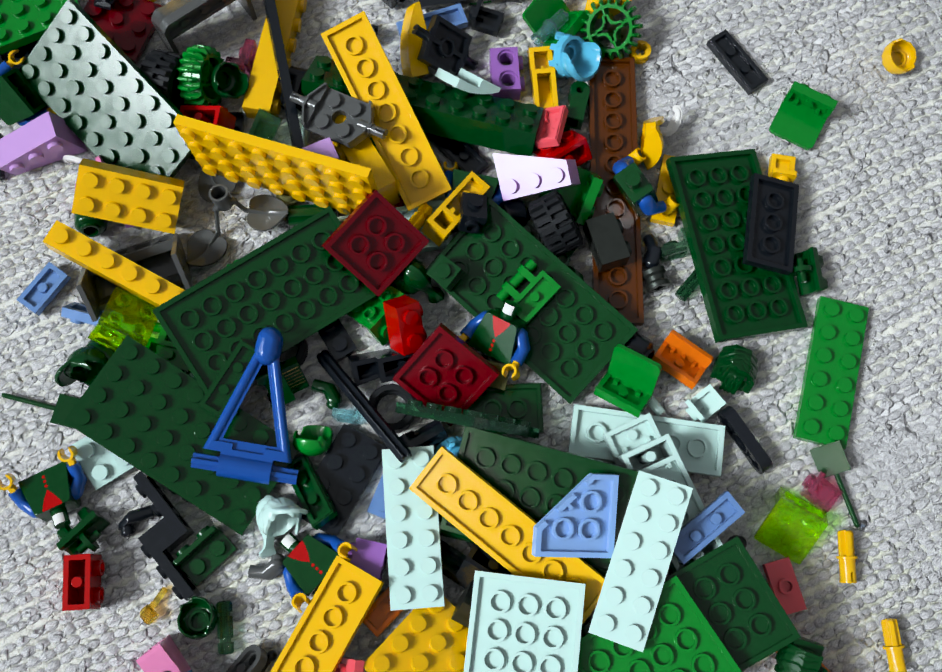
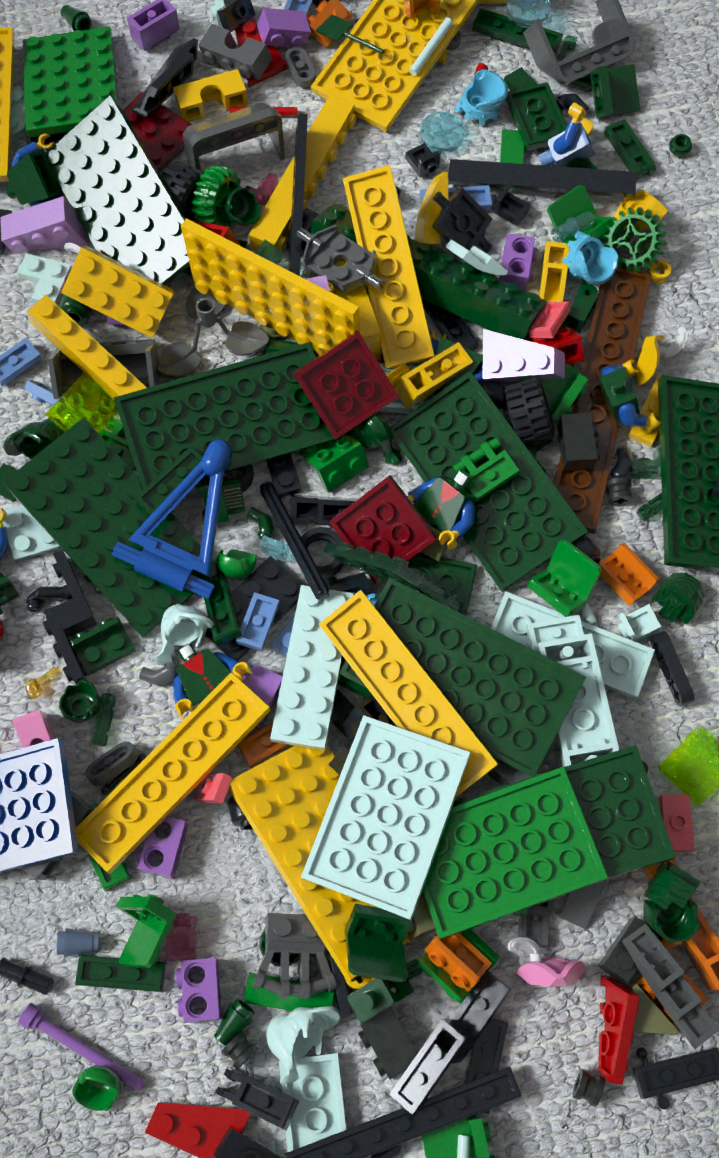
camera: 15 degrees right, 5 degrees down
(57, 191) = (47, 273): none -> light aqua plate
(349, 495) = (258, 621): none -> medium blue plate
(404, 324) = (354, 472): red brick -> none
(445, 272) = (408, 432): dark green brick -> none
(472, 213) = (448, 381): black bracket -> none
(581, 521) = (481, 691): light blue plate -> none
(640, 561) = (531, 743): light aqua plate -> none
(706, 526) = (605, 731): medium blue plate -> none

